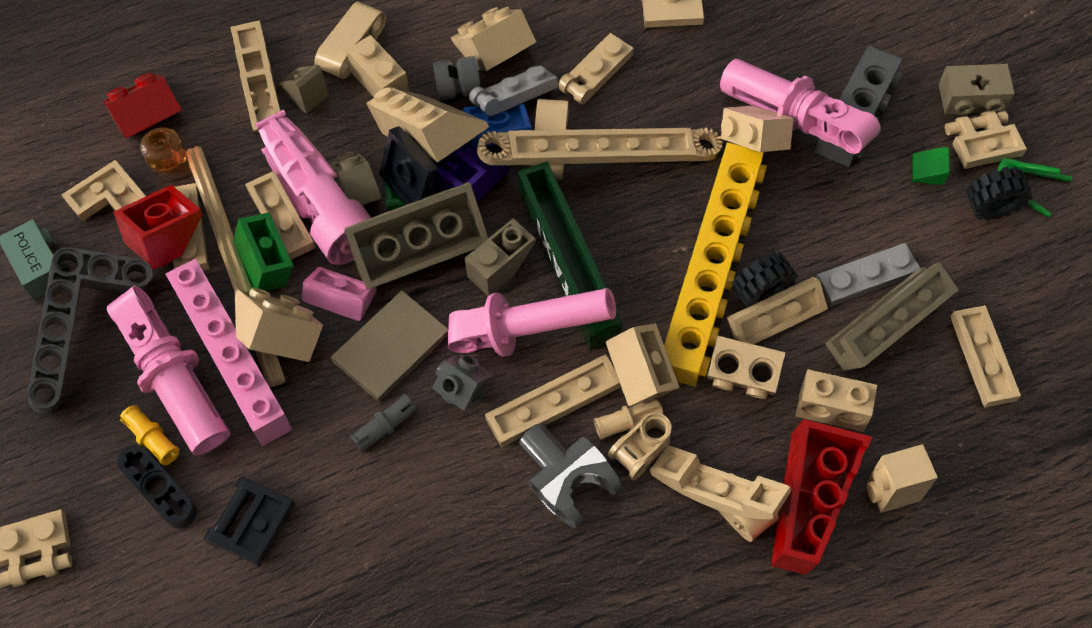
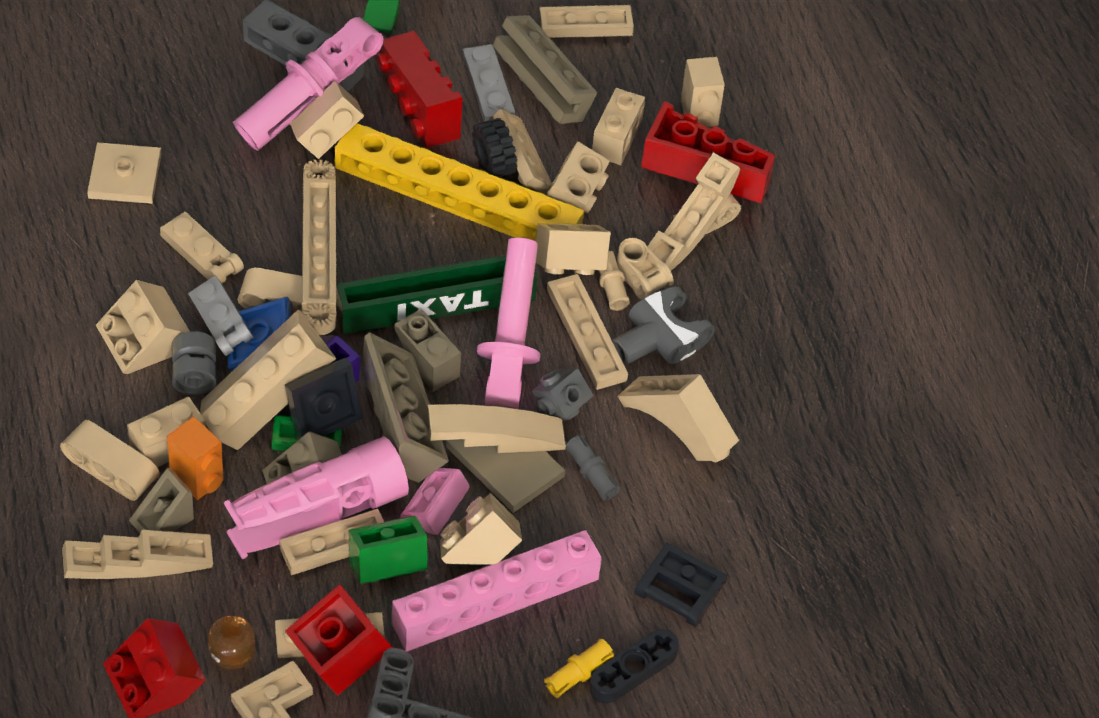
camera: 90 degrees left, 10 degrees down
(168, 371) = (517, 636): bright pink piece -> none
(224, 237) = (363, 593): tan axle -> none
(344, 90) = (196, 457): none -> orange brick
(405, 323) = (493, 425): none -> tan slope
(445, 496) = (687, 410): none -> tan arch
(832, 207) = (421, 89): none -> red wedge

